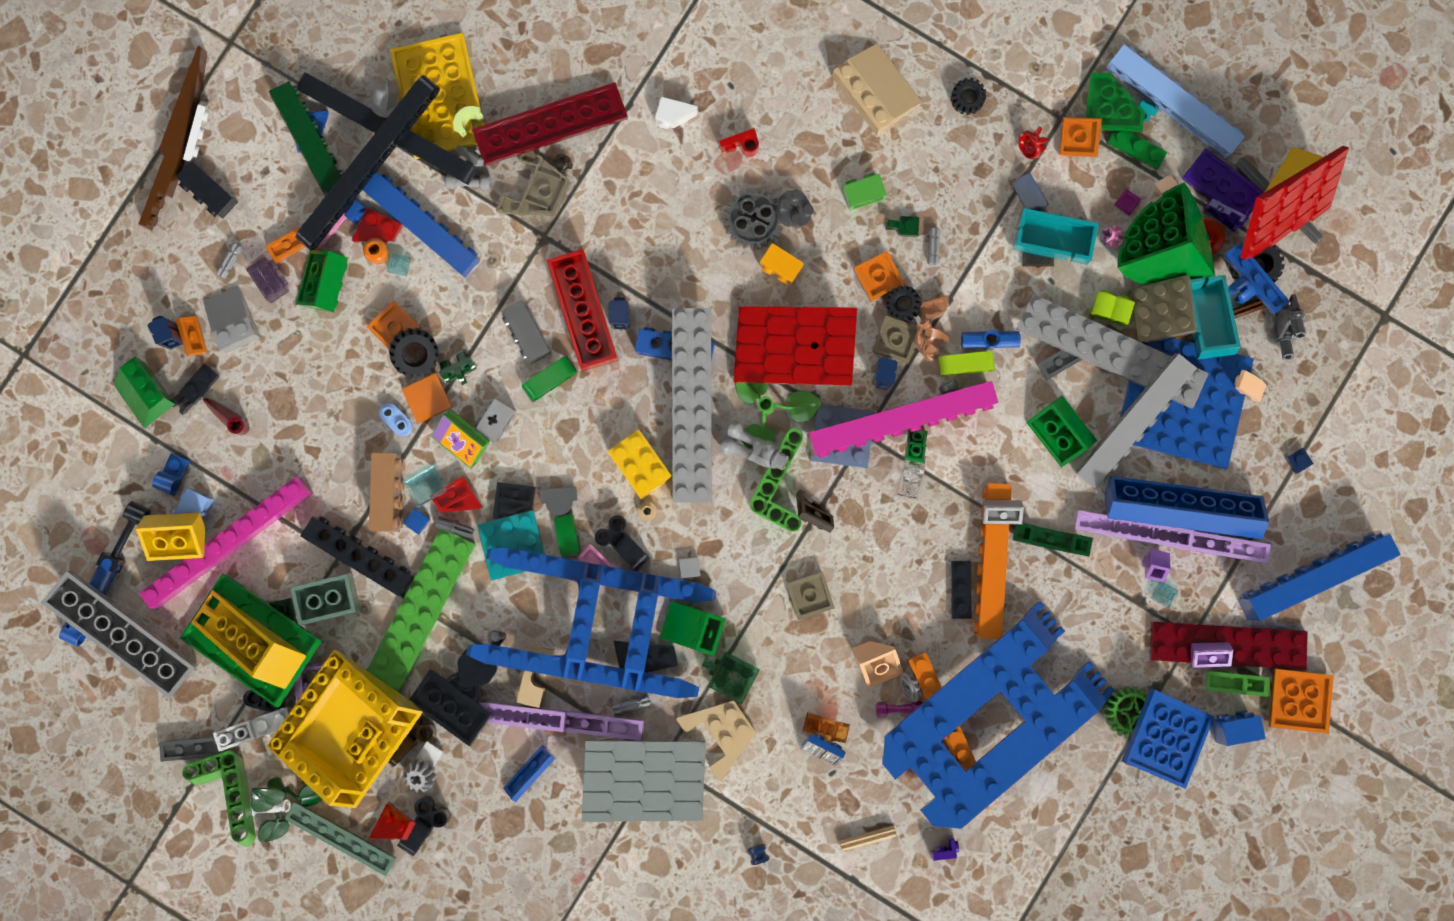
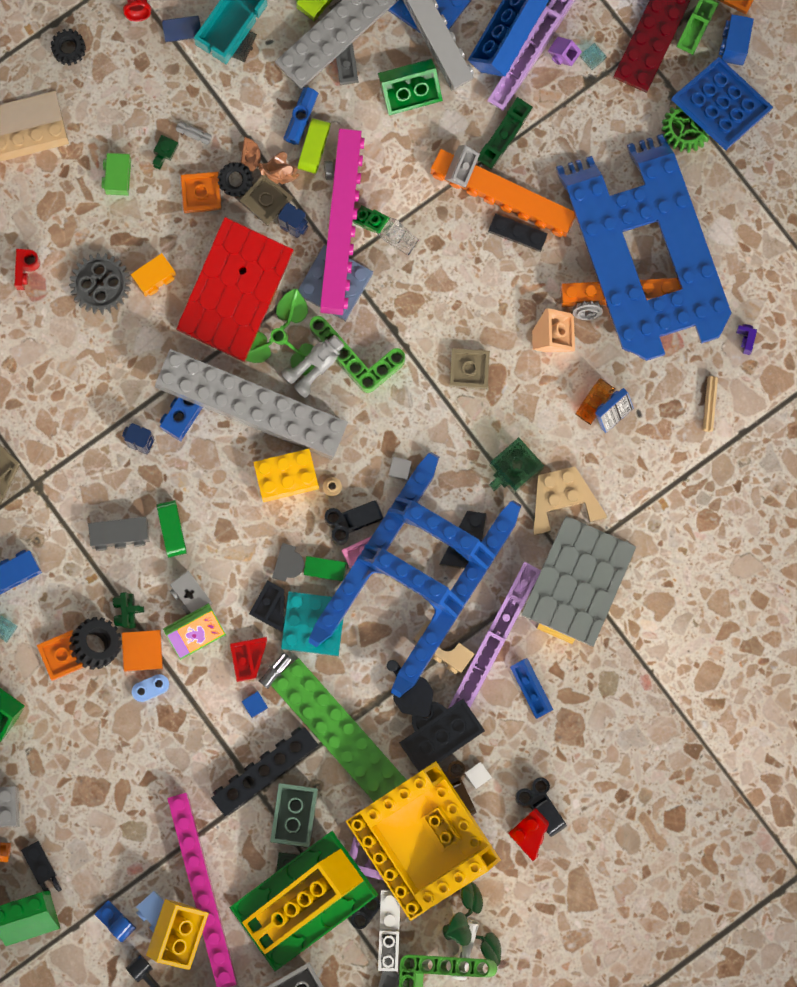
camera: 70 degrees left, 5 degrees down
(228, 417) = (81, 848): dark red piece -> none
(340, 838) = (524, 888): sand green plate -> none
(385, 492) = (216, 719): medium nougat brick -> none
(419, 775) = (500, 786): light grey gear -> none
(425, 486) = (225, 682): clear light blue piece -> none
(582, 310) = (120, 471): red brick -> none
(631, 705) = (505, 573): light grey axle -> none
(692, 628) = (457, 485): green slope -> none
(758, 854) = (686, 507): dark blue wheel -> none
(802, 205) = (109, 234): flat silver plate -> none
(814, 513) = (395, 335): dark brown wing -> none
(884, 709) = (599, 344): magenta piece -> none
(1211, 654) = (662, 36): medium lavender slope -> none

